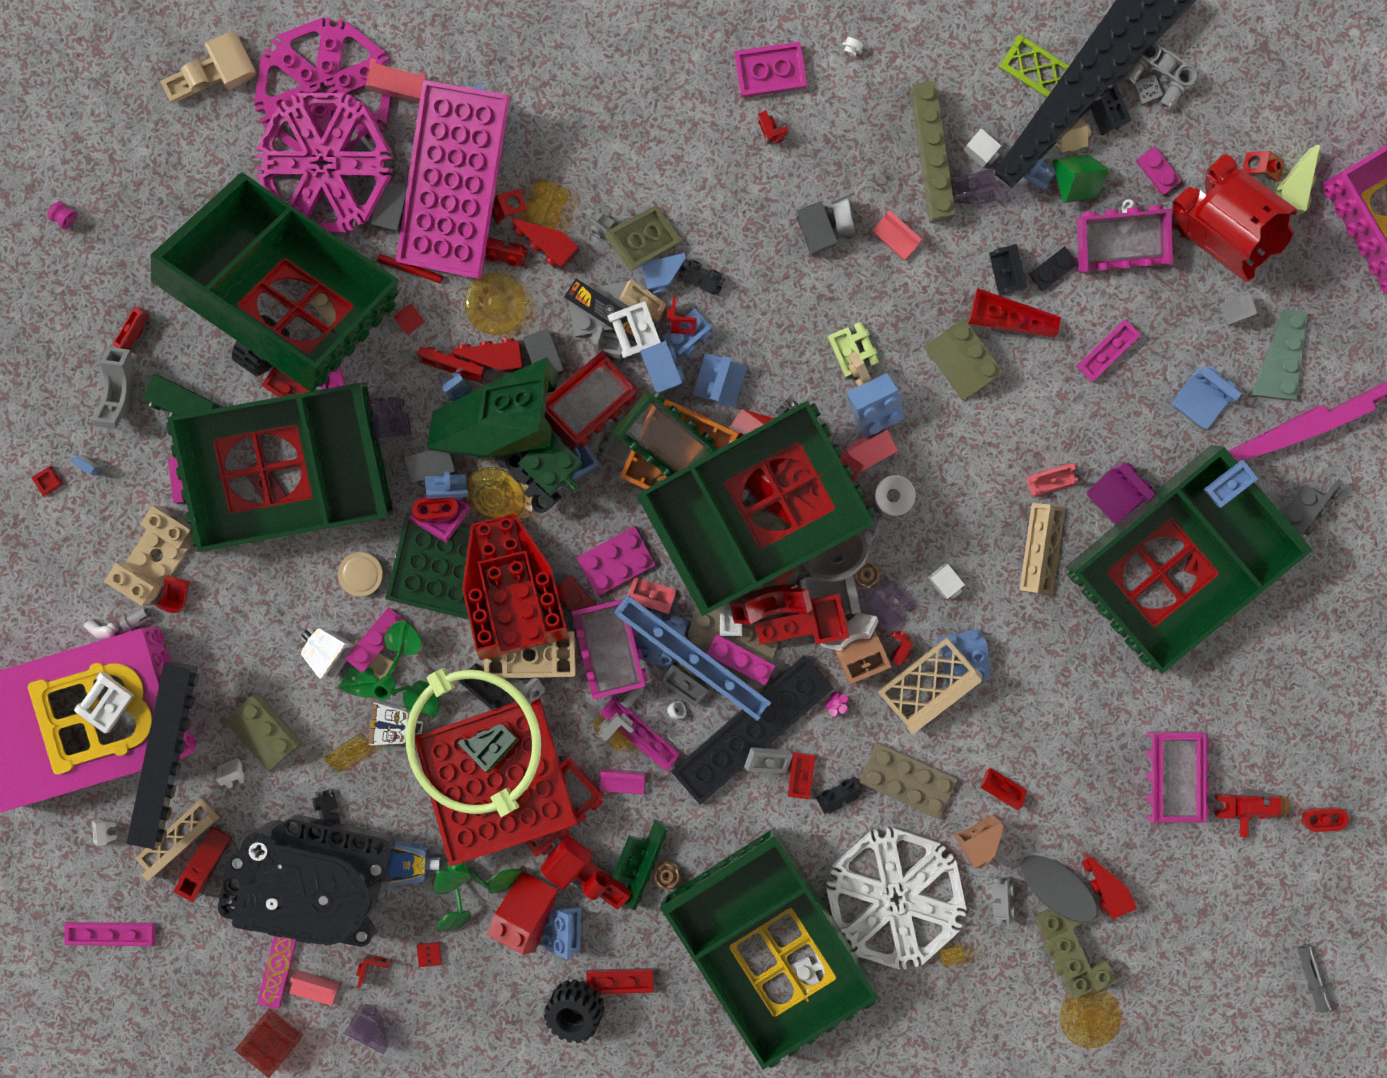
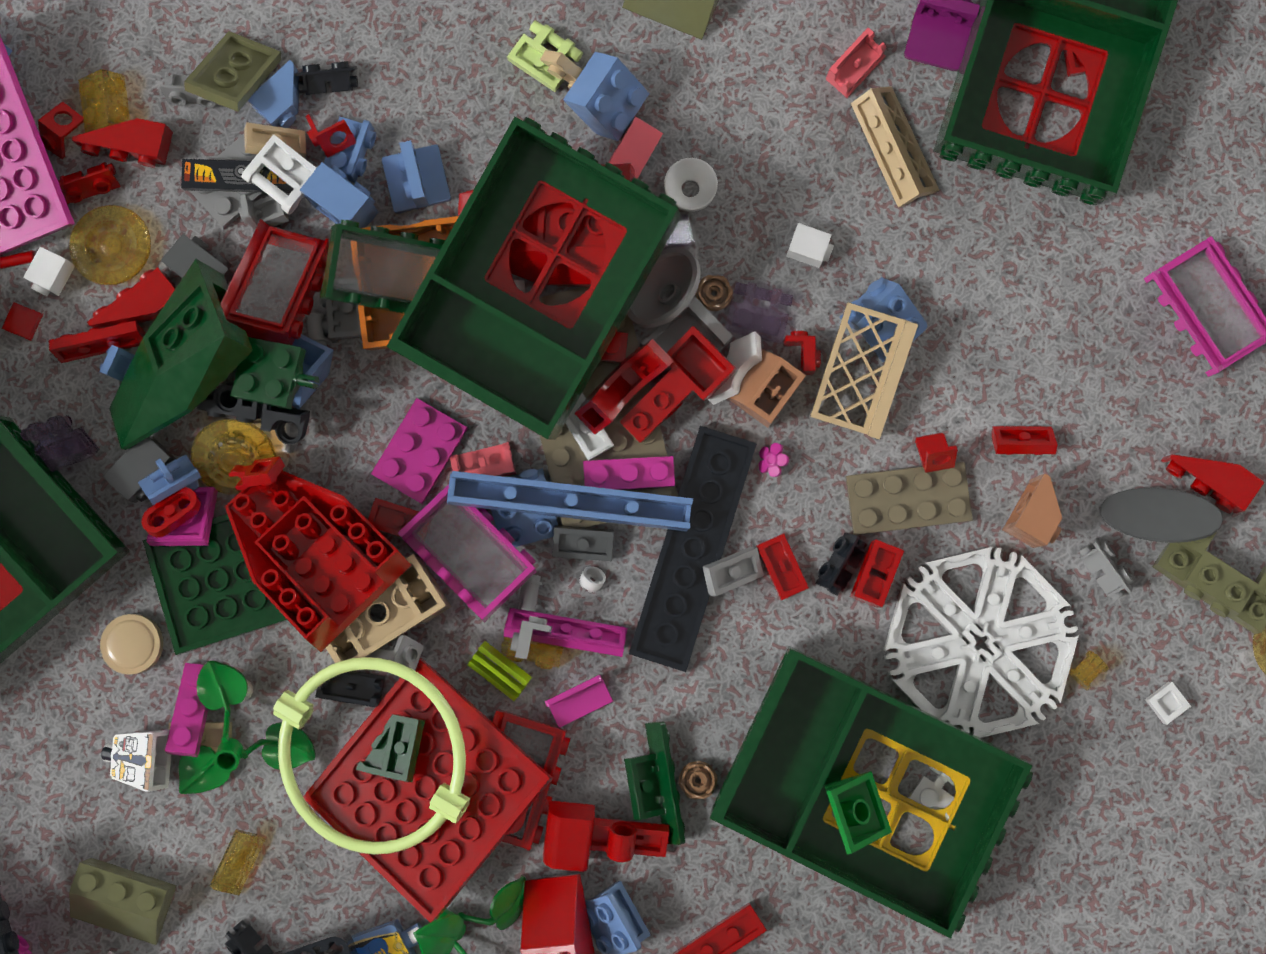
camera: 25 degrees left, 5 degrees down
(390, 724) = (265, 799): torso -> none
(445, 298) = (48, 272): none -> white brick
(505, 518) = (261, 472): none -> red plate
(580, 733) = (497, 674): none -> lime tile
(753, 961) = (858, 811): none -> green slope
(857, 817) = (876, 573): none -> red brick
(942, 762) = (935, 452): none -> red bracket
(988, 1005) = (1168, 703): none -> white plate

